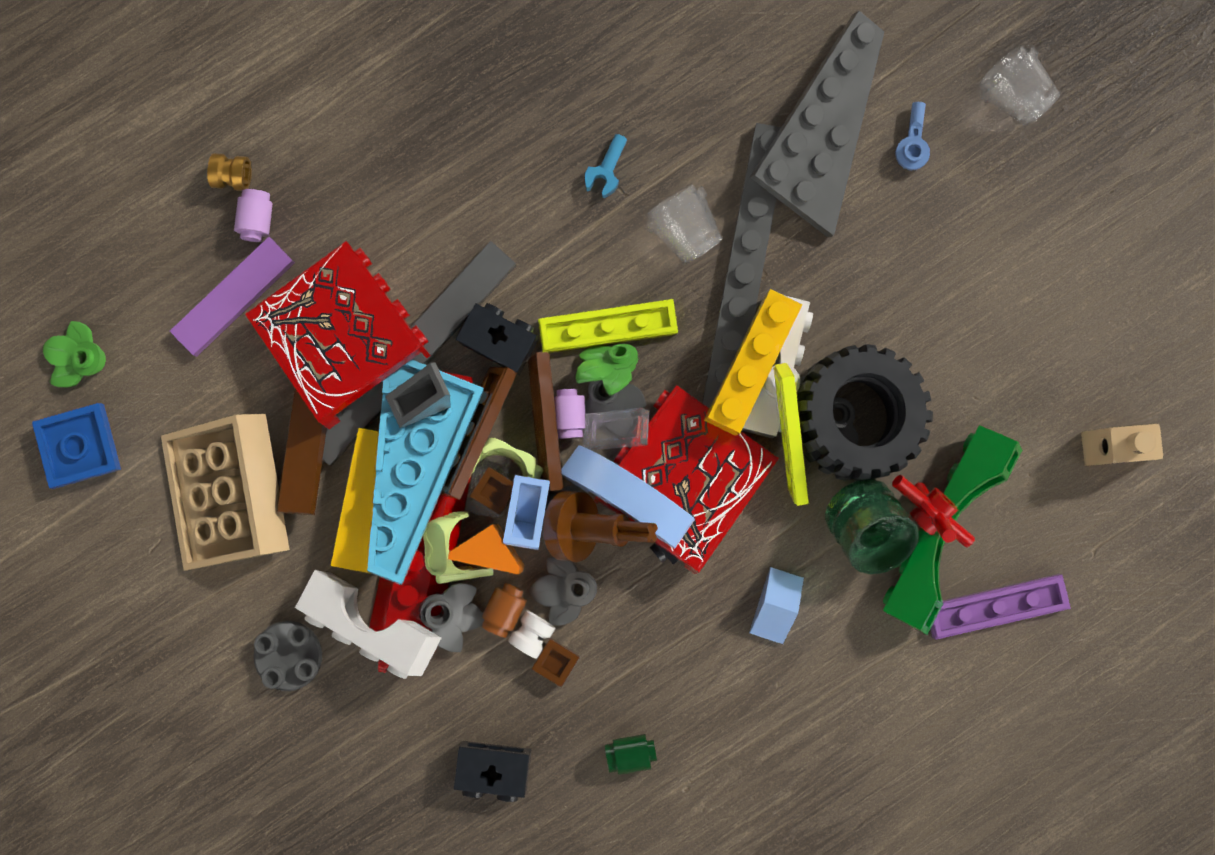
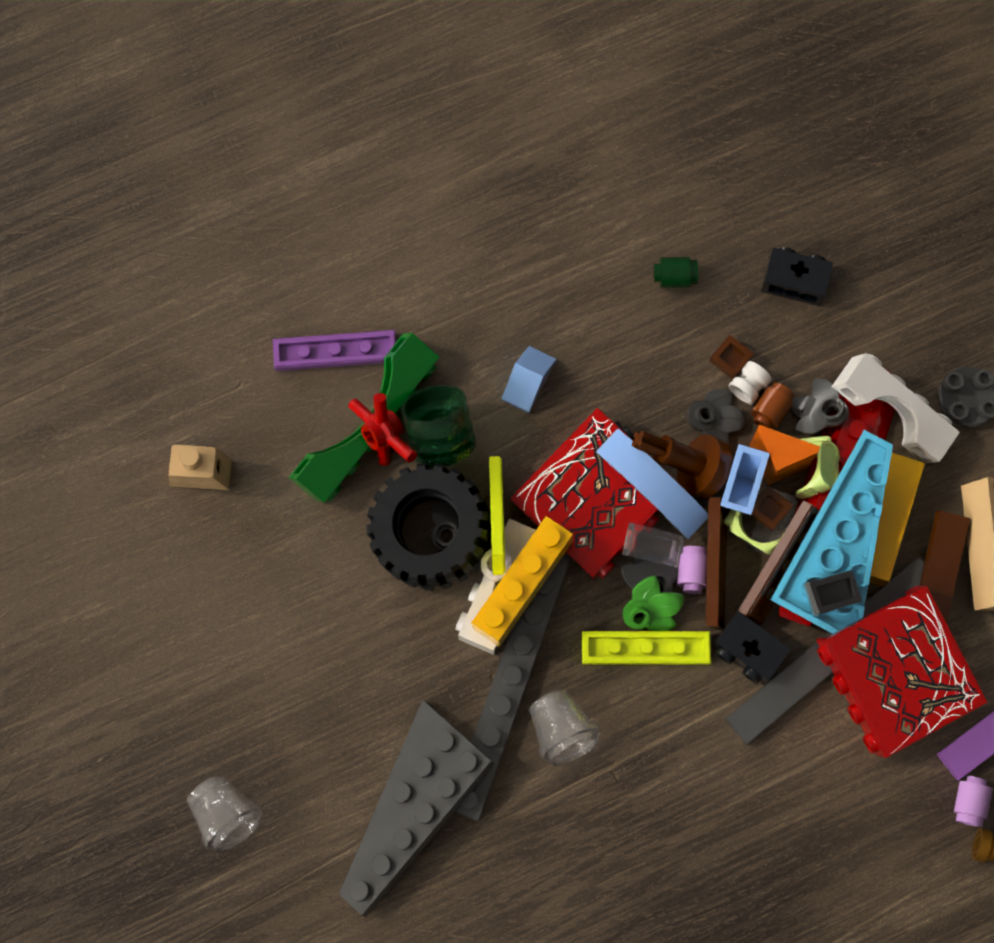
camera: 170 degrees left, 10 degrees down
(606, 169) = (626, 801): dark azure bar -> none
(913, 151) = (333, 770): medium blue plate -> none

